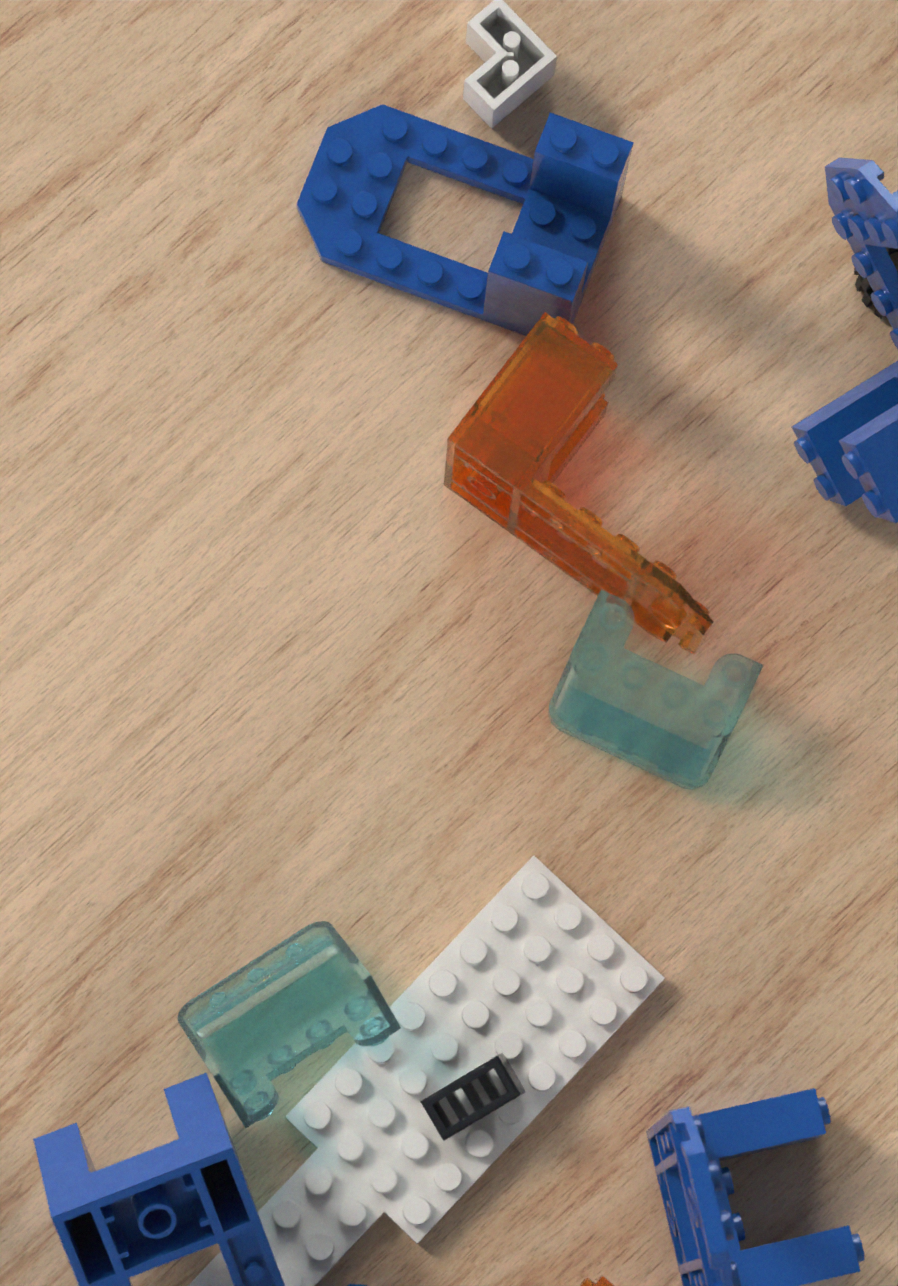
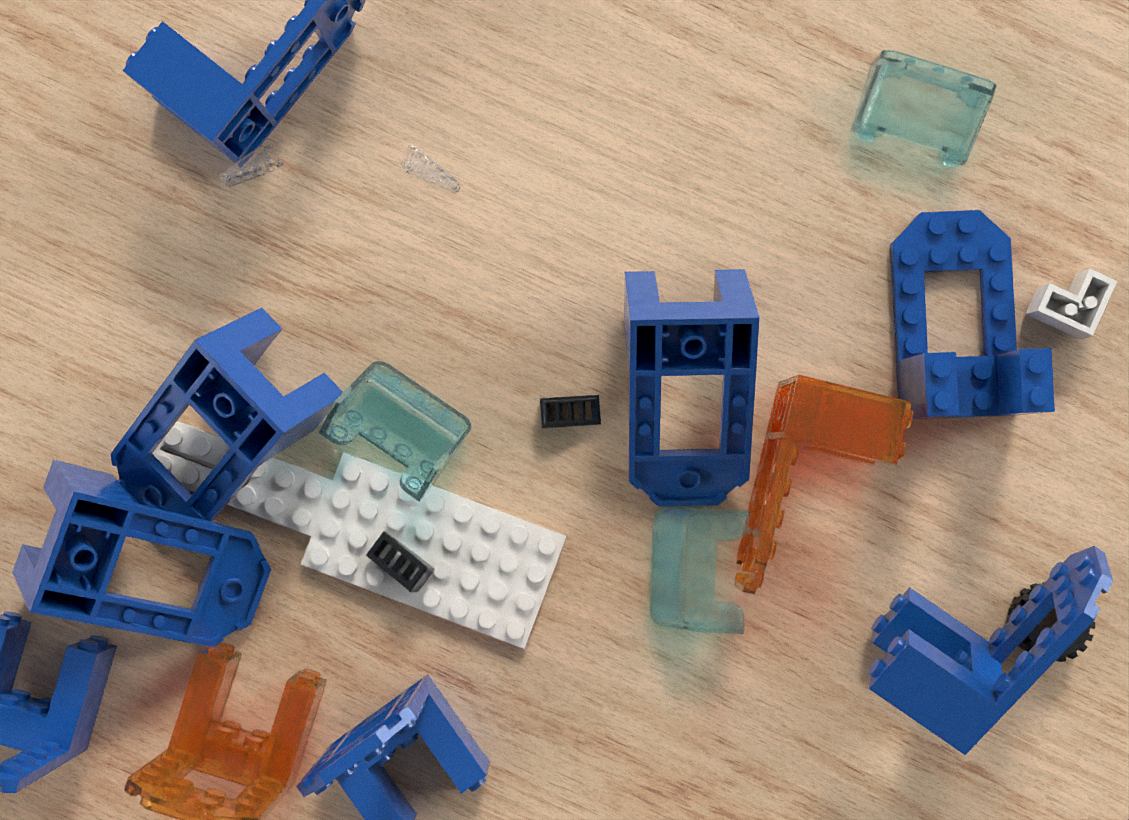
camera: 70 degrees right, 10 degrees up
(156, 141) = (923, 105): none -> clear light blue windscreen
(339, 566) = (688, 342): none -> blue bracket
(352, 812) = (545, 411): none -> black slope

